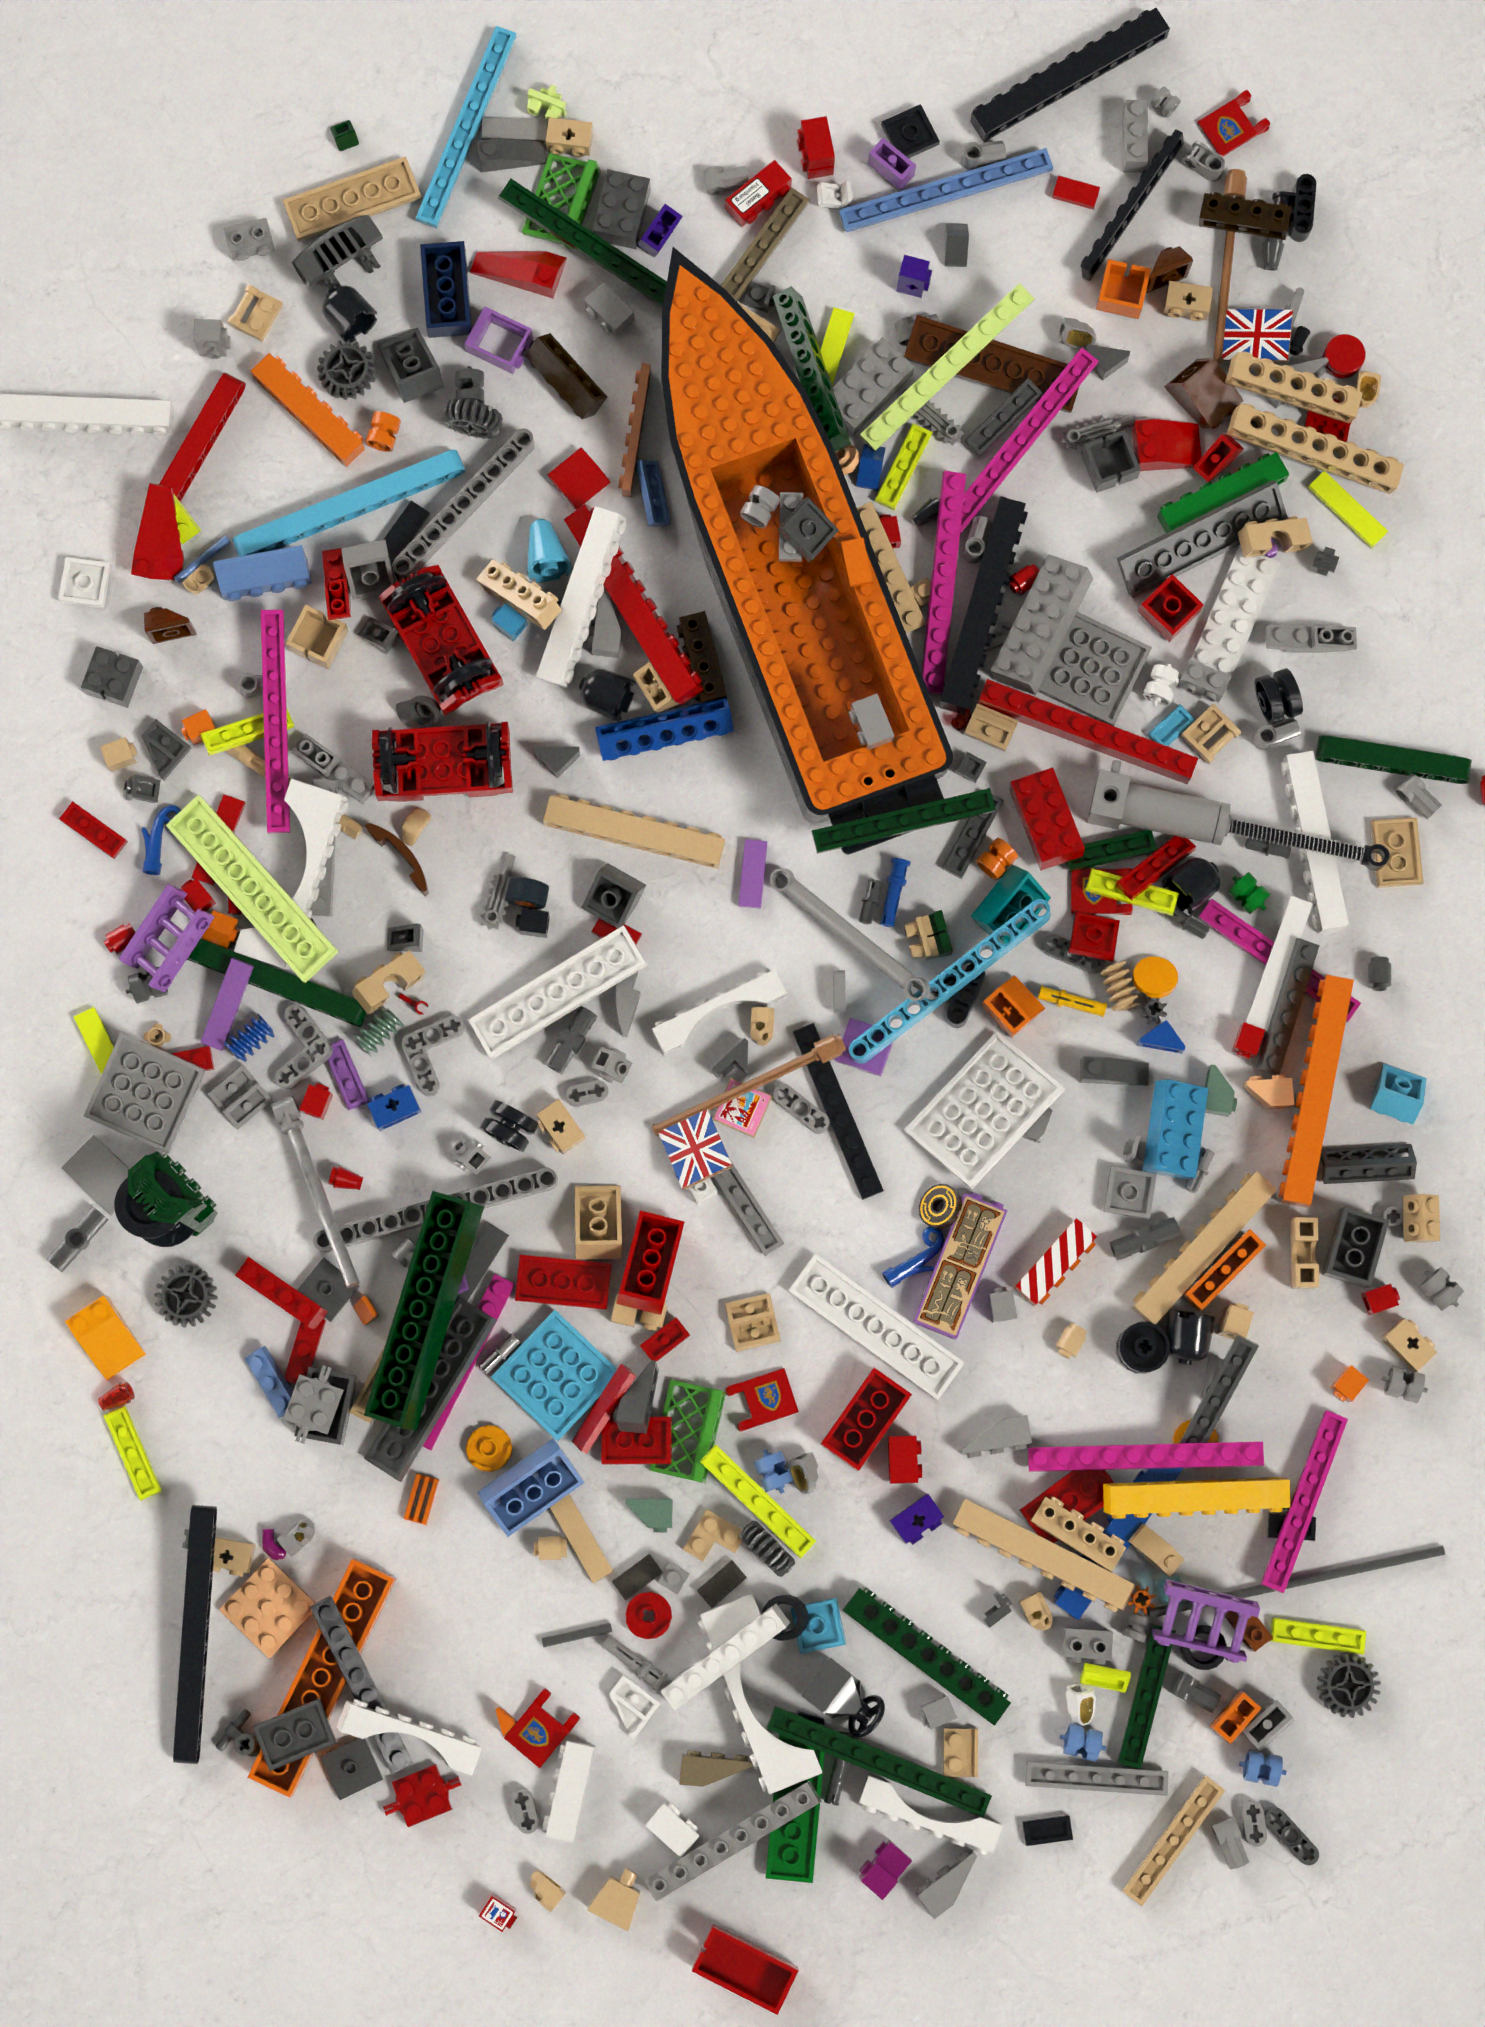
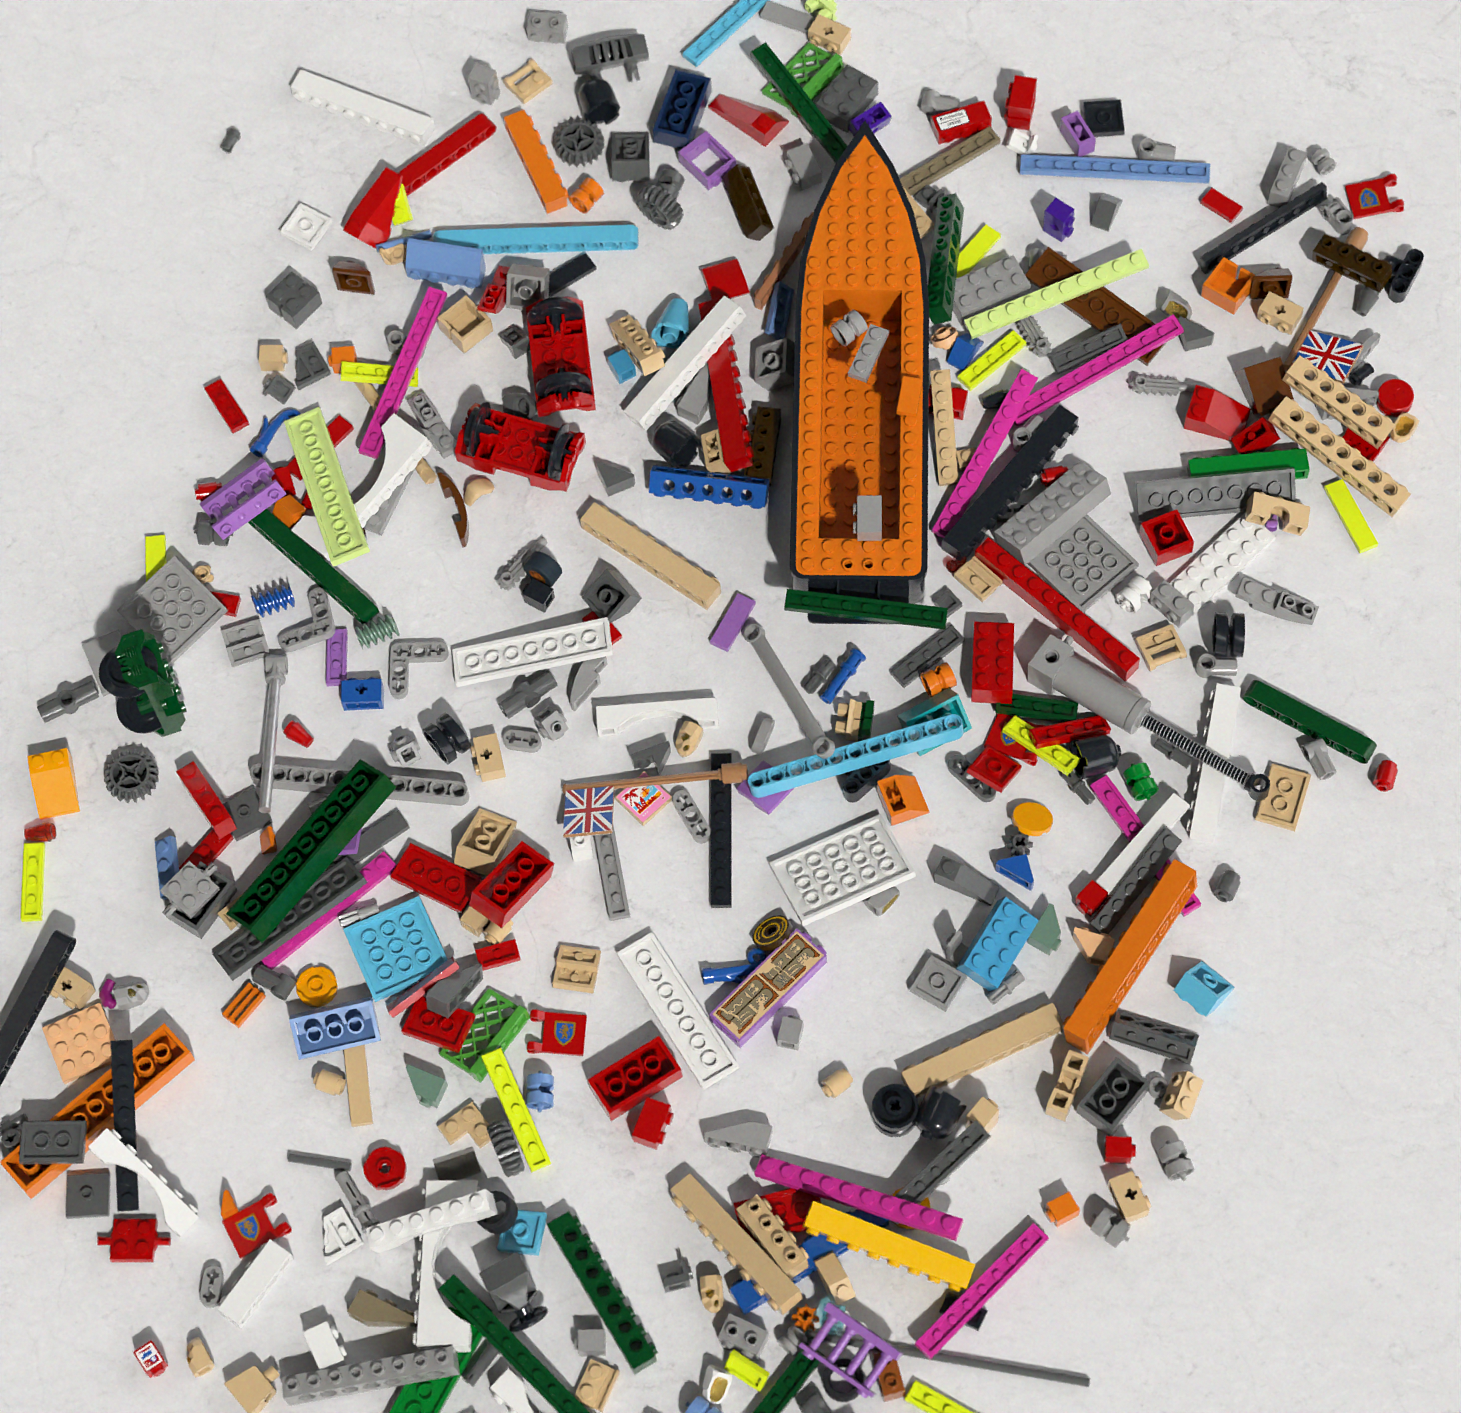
camera: 30 degrees right, 15 degrees down
(227, 1004) = (268, 567): medium lavender tile -> none
(316, 1101) = (303, 667): red brick -> none
(351, 197) = (656, 24): tan plate -> none
(402, 969) = (416, 592): tan arch -> none
(405, 938) = (432, 571): dark grey slope -> none
(413, 1003) = (416, 623): red hand -> none
(448, 1463) = (278, 984): none -> dark grey piece
(467, 494) = (633, 264): light grey beam -> none
(510, 154) = (776, 32): dark grey slope -> none
(637, 1576) = (390, 1134): clear smoke tile -> none
(673, 1578) = (419, 1145): light grey brick -> none
(679, 560) = (775, 364): none -> light grey brick
(804, 1472) = (565, 1102): light grey rock -> none
(808, 529) = (880, 357): dark grey plate -> none
(923, 1507) = (632, 1173): dark purple brick -> none
(1055, 1262) = (850, 1015): brick -> none
(1069, 75) = (1252, 117): black brick -> none
(1098, 1007) = (946, 808): yellow pin -> none
(1111, 463) = (1165, 413): dark grey piece -> none
(1119, 987) = (997, 816): tan piece -> none
(1145, 1238) = (935, 1024): dark grey piece -> none
(1171, 726) = (1129, 631): medium azure tile -> none
(1224, 1270) = (991, 1073): orange brick -> none
(1325, 561) = (1314, 547): dark grey gear -> none

